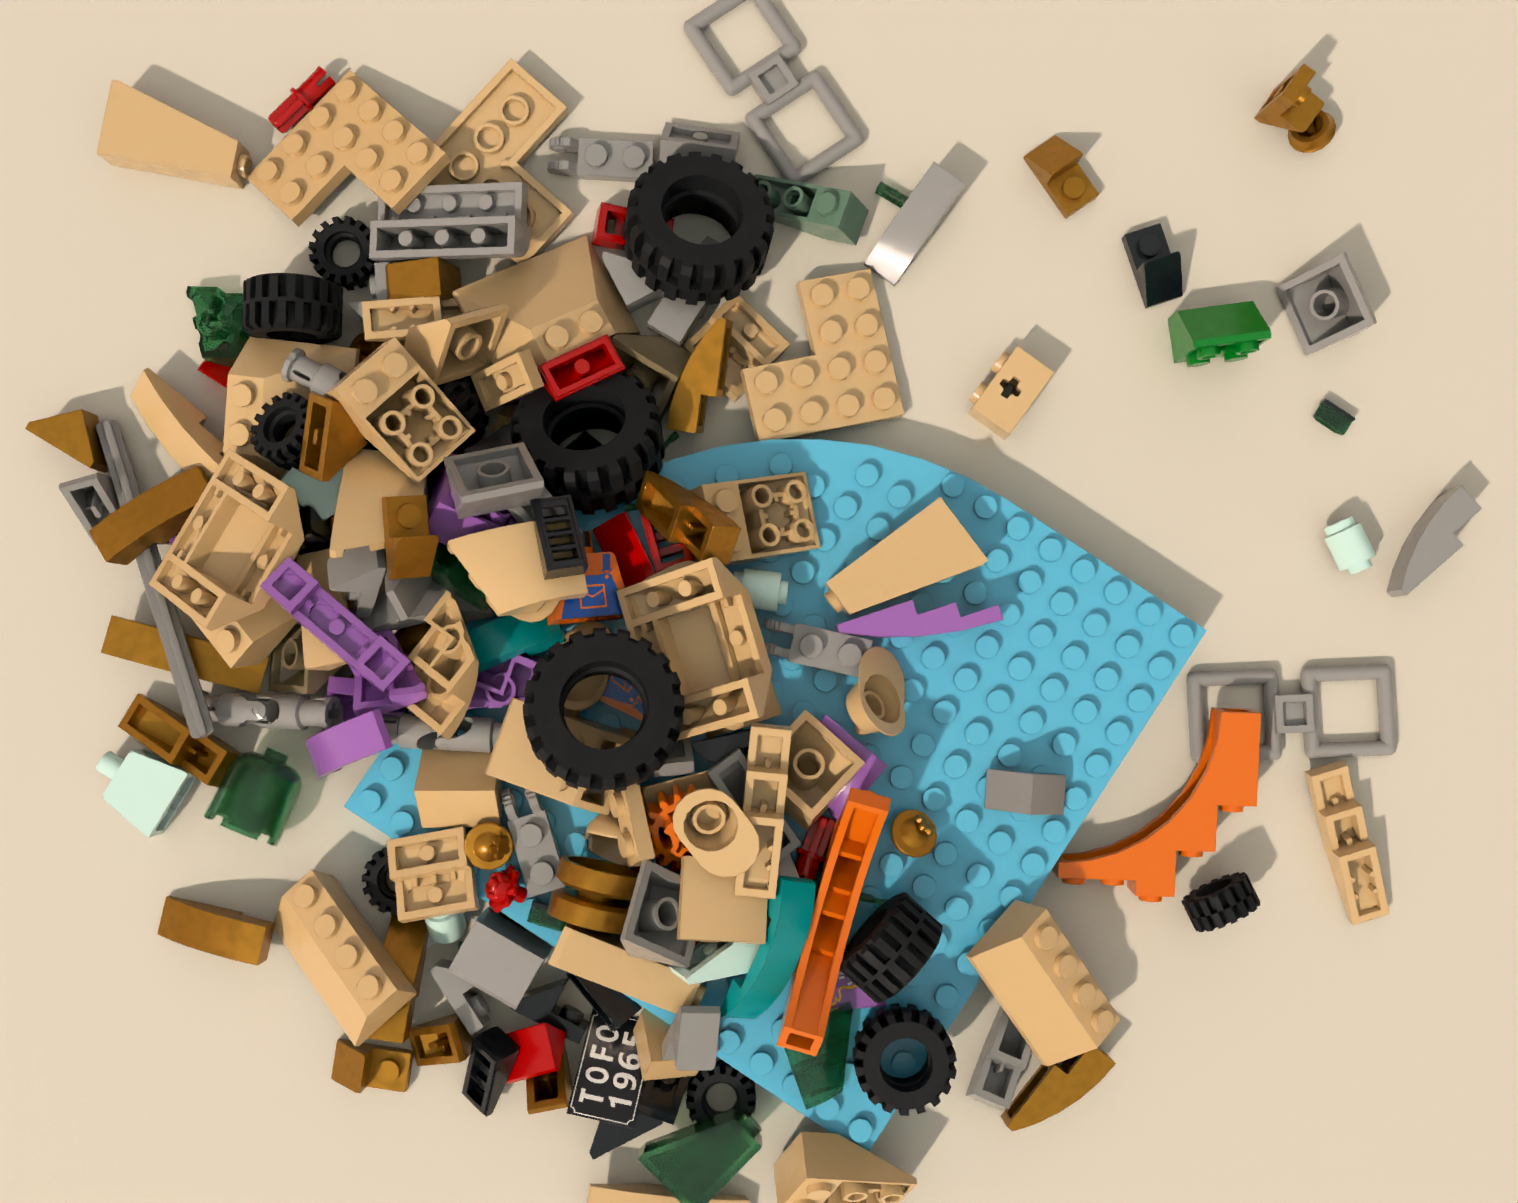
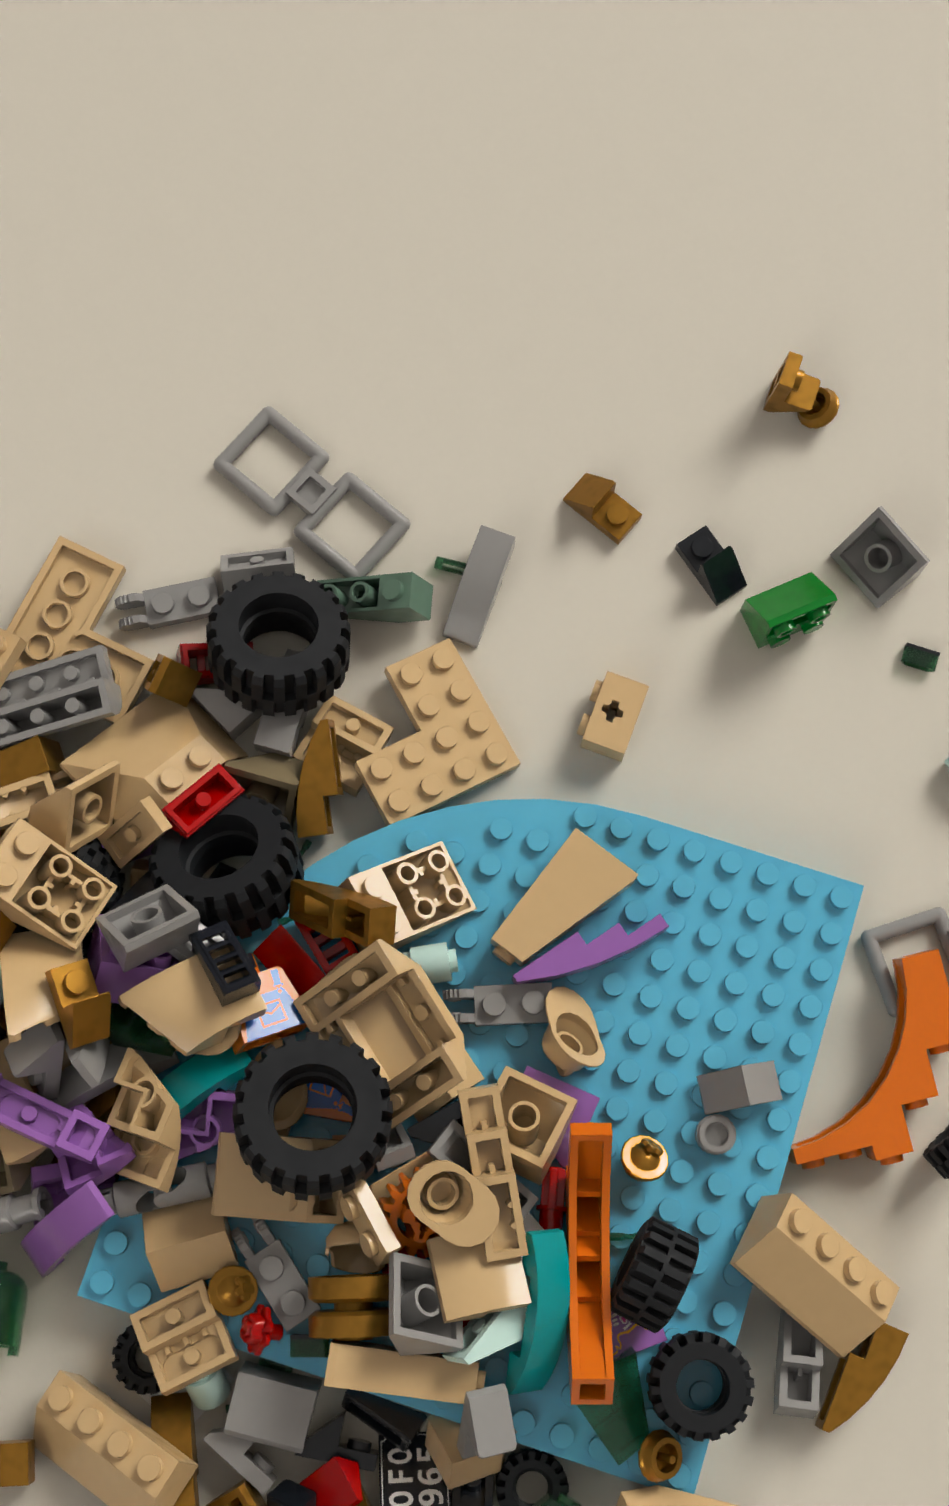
camera: 20 degrees left, 10 degrees down
(584, 237) = (172, 680): none -> pearl gold slope
(847, 1110) = (659, 1456): none -> pearl gold hat
(988, 829) = (715, 1134): none -> light grey tile

